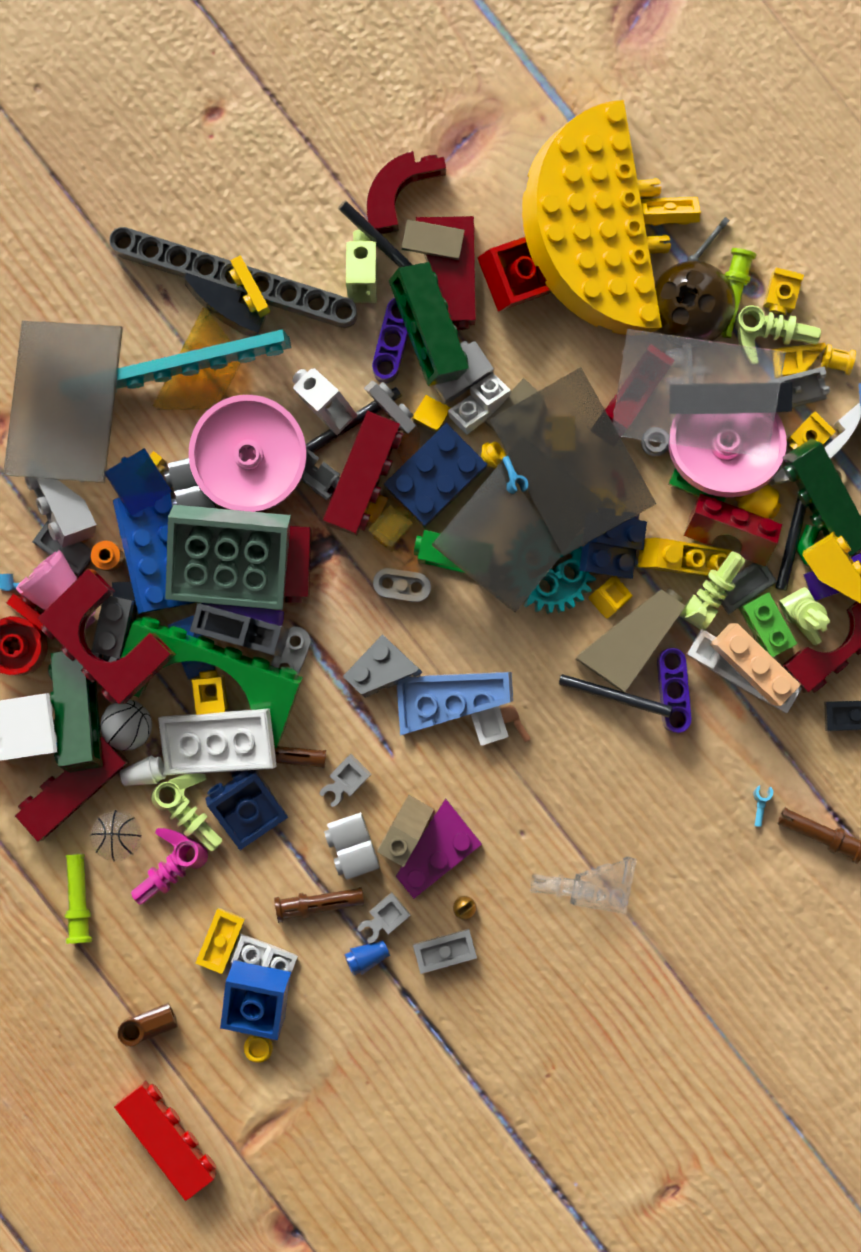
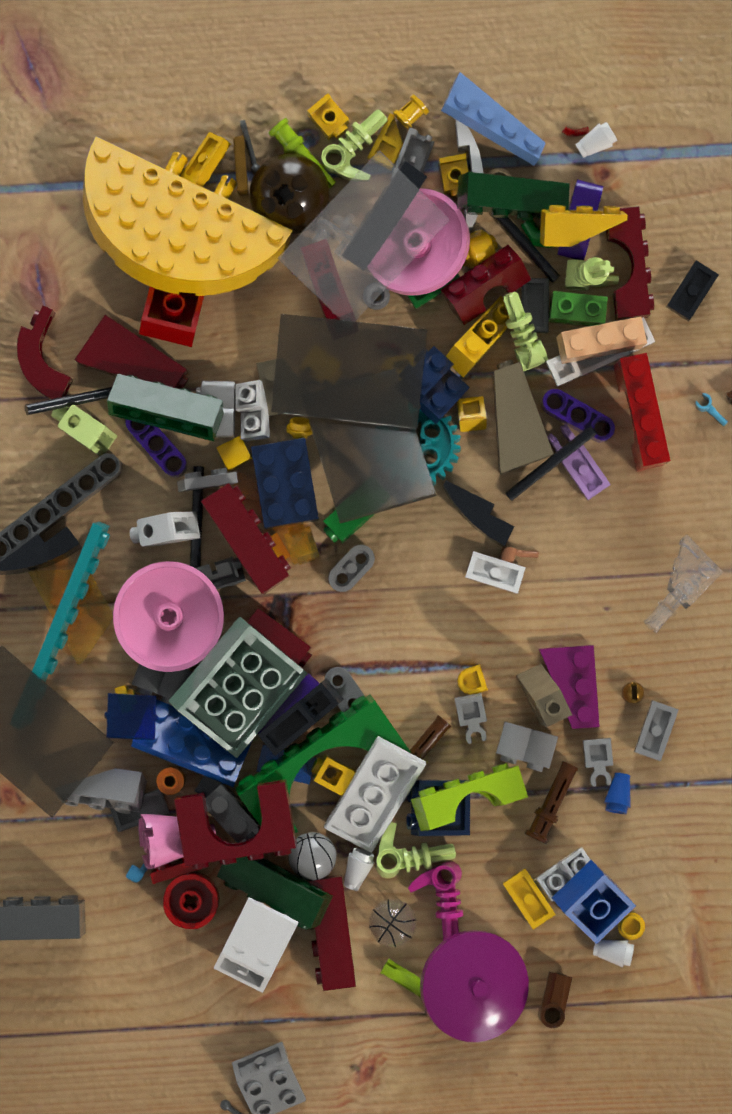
camera: 65 degrees left, 0 degrees up
(110, 945) = (474, 986): none -> magenta dish
(166, 1140) = (653, 1045): red brick -> none
(225, 1049) = (615, 951): none -> white cone
(243, 277) = (27, 525): yellow plate -> none
(244, 806) = (440, 806): none -> lime arch
(377, 758) = (472, 680): none -> yellow tile
(380, 668) = (404, 628): wing -> none
(432, 239) = (102, 358): dark tan tile -> none
(441, 698) = (462, 594): medium blue wing -> none
(521, 480) = (330, 424): dark azure hand -> none
(527, 661) = (477, 513): none -> black slope
(631, 724) = (581, 466): none -> lavender hinge
(687, 244) = (240, 165): none -> pearl gold tile
(699, 765) = (636, 381): none -> red arch

